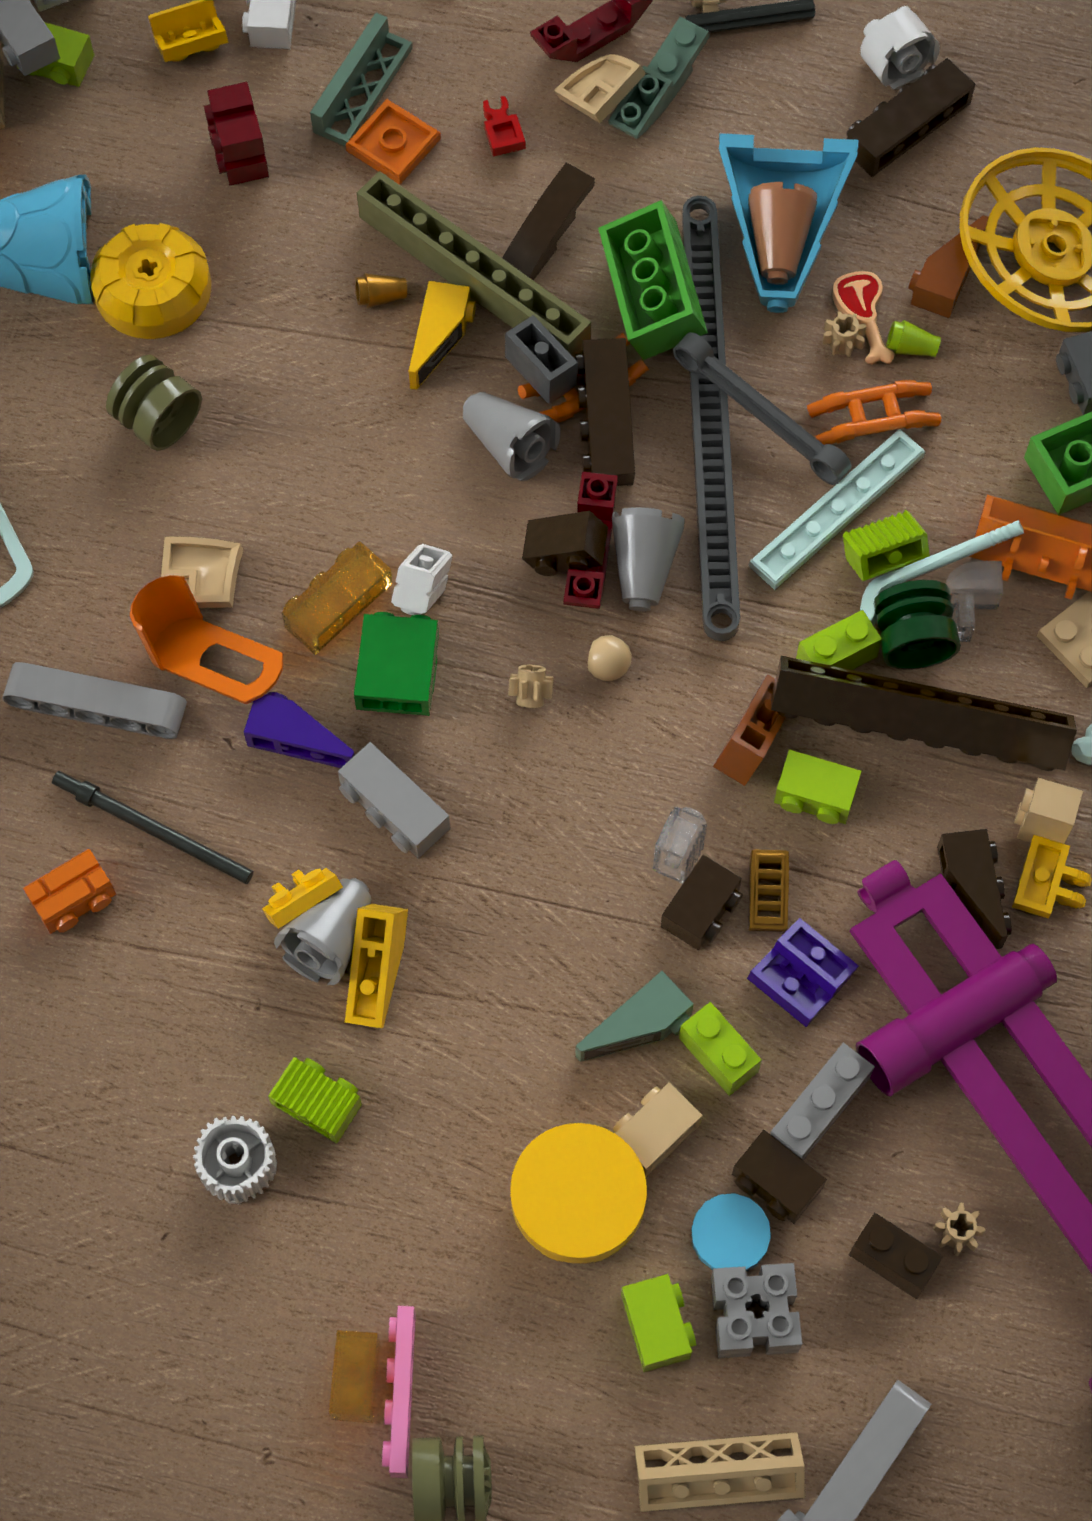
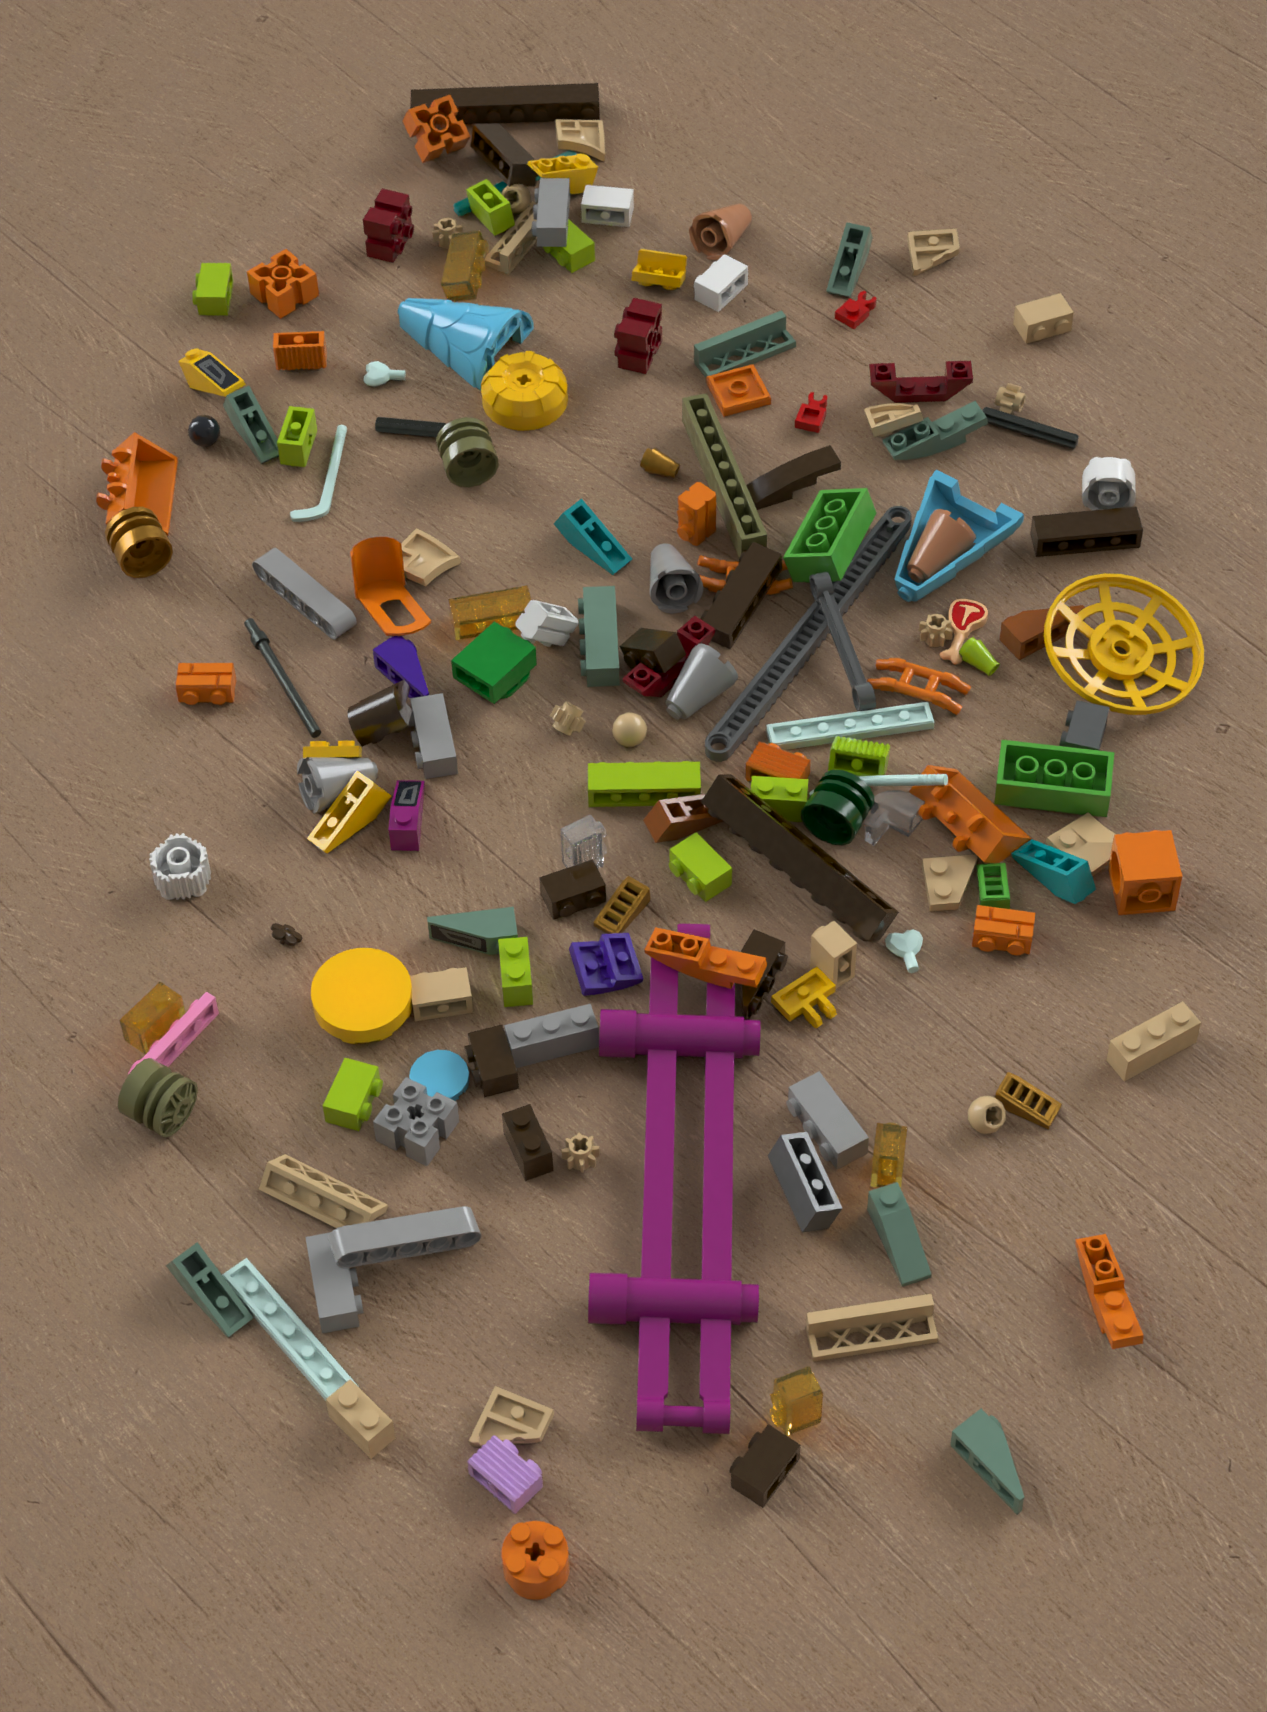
camera: 35 degrees right, 15 degrees down
(62, 395) = (408, 426): none -> pearl dark grey axle
(316, 809) = (380, 714): none -> dark brown brick
(316, 1099) = (254, 865): lime brick -> none
(377, 432) = (591, 537): none -> teal slope
(419, 1164) = (285, 934): none -> dark brown plant
(438, 918) = (406, 815): none -> magenta slope
(440, 328) = (664, 505): yellow slope -> none
(481, 335) = (696, 514): none -> orange brick
(485, 556) = (600, 636): none -> sand green brick
(541, 359) = (720, 542): dark grey brick -> none
(676, 718) = (641, 782): none -> lime brick
(805, 609) = (772, 761): none -> orange brick
(930, 910) = (705, 962): none -> orange slope

